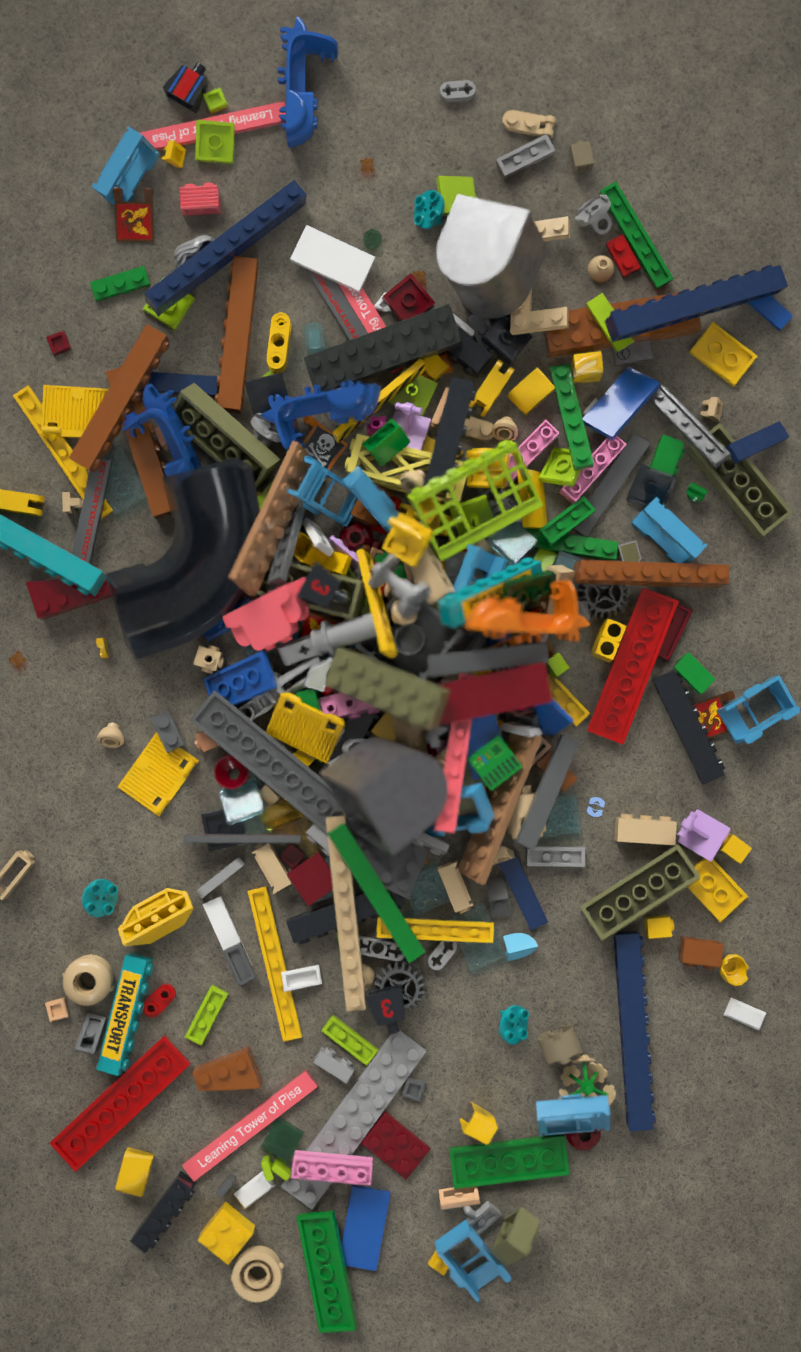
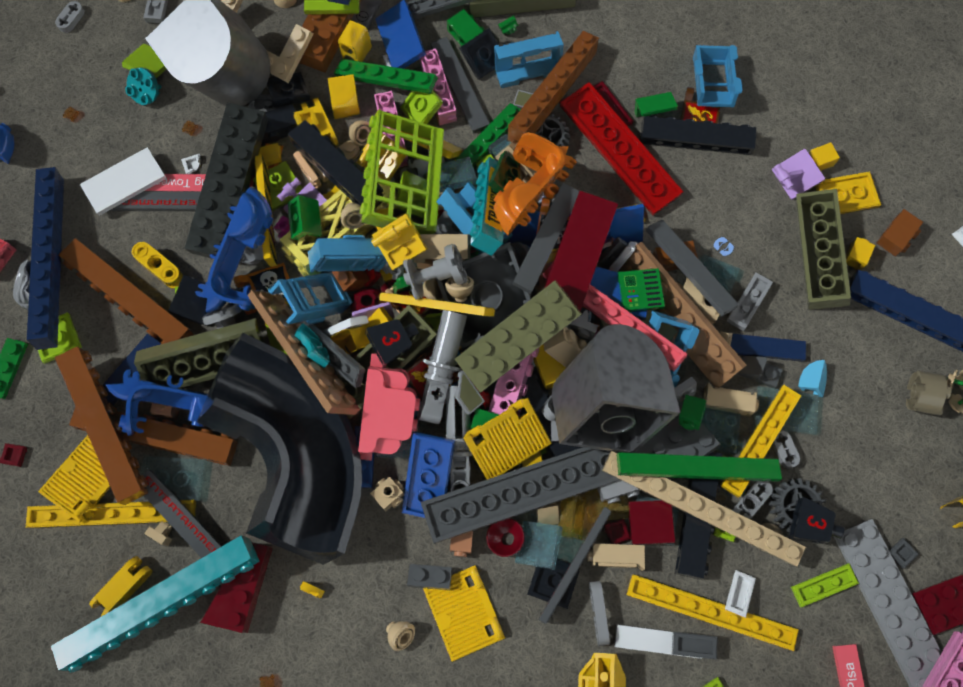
camera: 55 degrees left, 15 degrees down
(286, 517) = (312, 345): none -> teal tile
(314, 337) = (174, 234): clear light blue brick -> none
(333, 1064) = (837, 616): light grey piece -> none
(372, 239) = (132, 144): clear green tile -> none
(408, 298) = (198, 143): dark red plate -> none
(419, 862) = (692, 412): none -> green brick
(483, 377) = (307, 115): none -> yellow tile
(514, 1024) = (886, 423): teal plate -> none
(567, 521) = (467, 127): green plate -> none
(596, 651) = (587, 165): yellow piece -> none
(645, 829) = (767, 216): tan brick -> none
(736, 976) = (934, 216): yellow hair -> none

